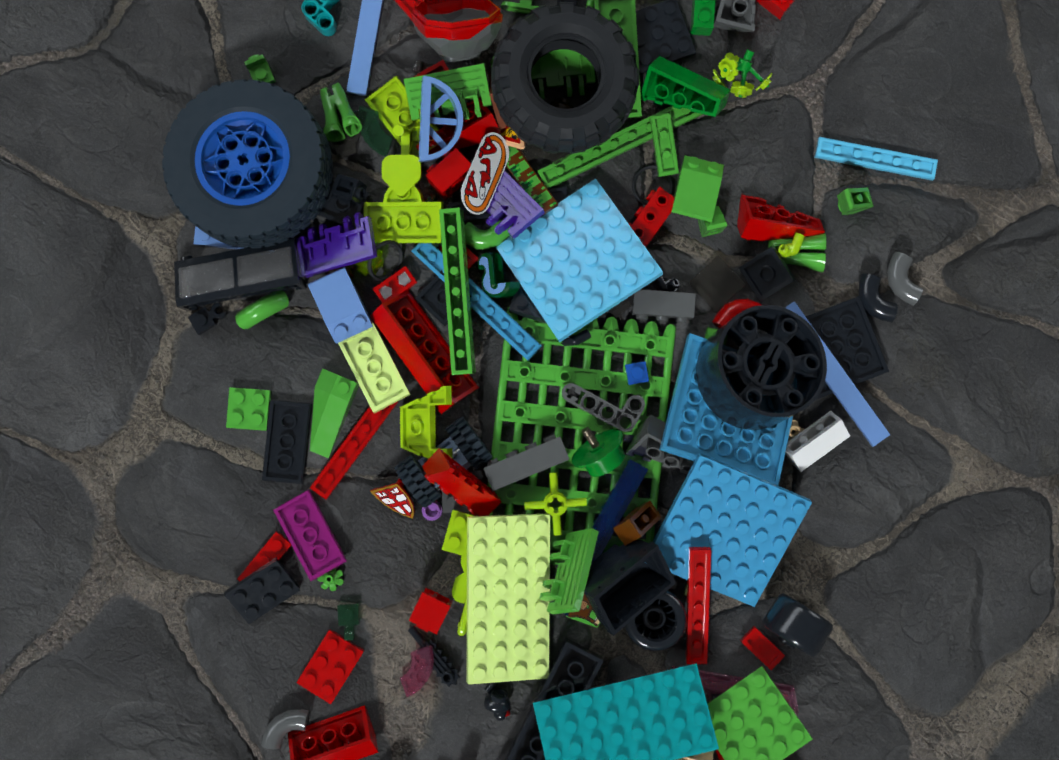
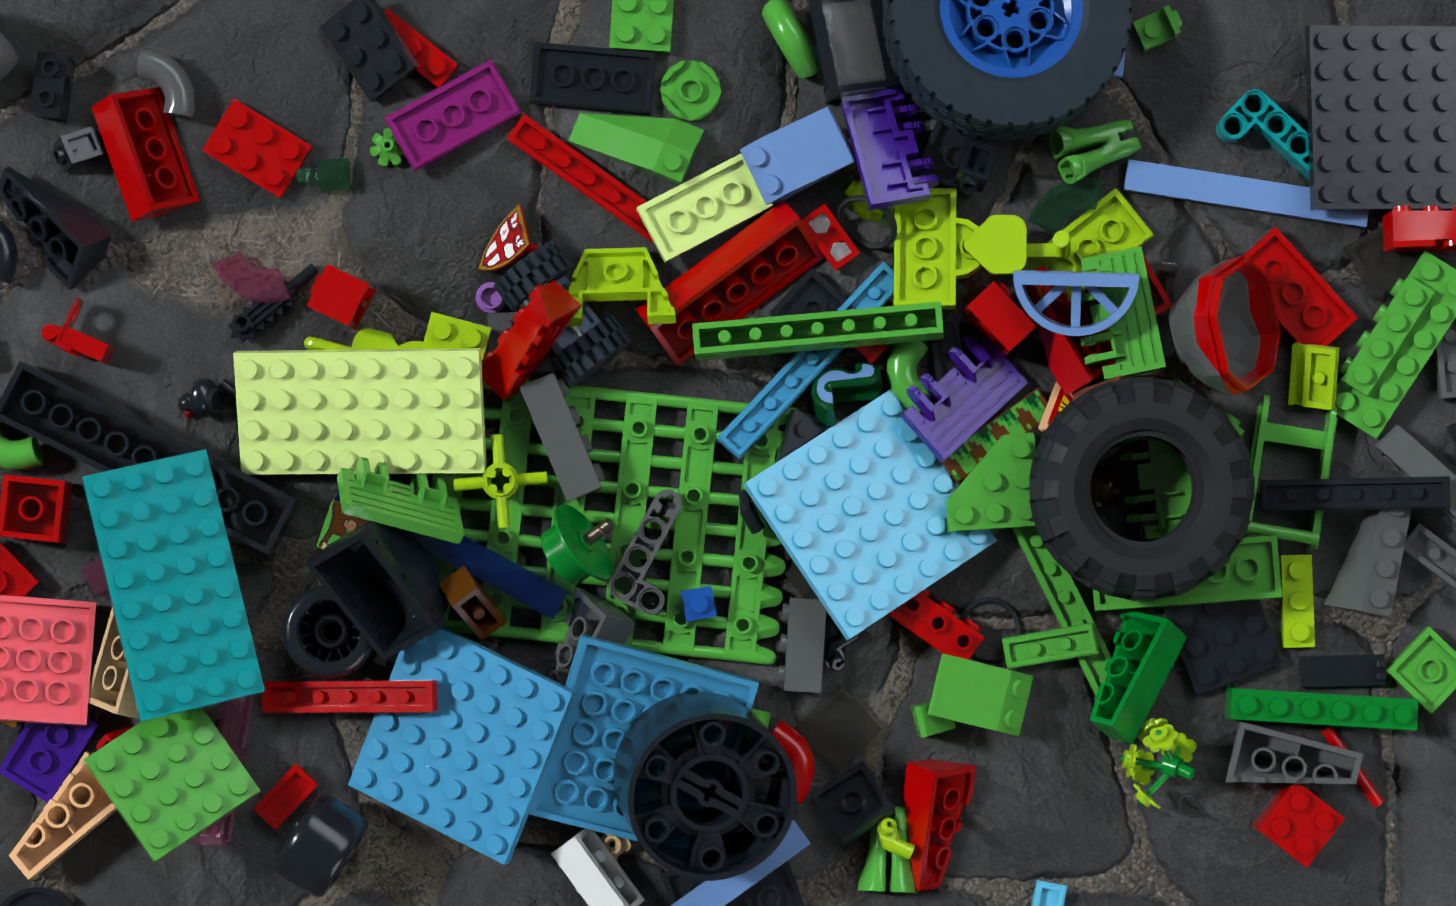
camera: 85 degrees right, 0 degrees up
(296, 377) = (690, 90): none -> bright green tile
(485, 173) = (999, 371): sticker -> none
(562, 176) = (996, 489): none -> bright green plate

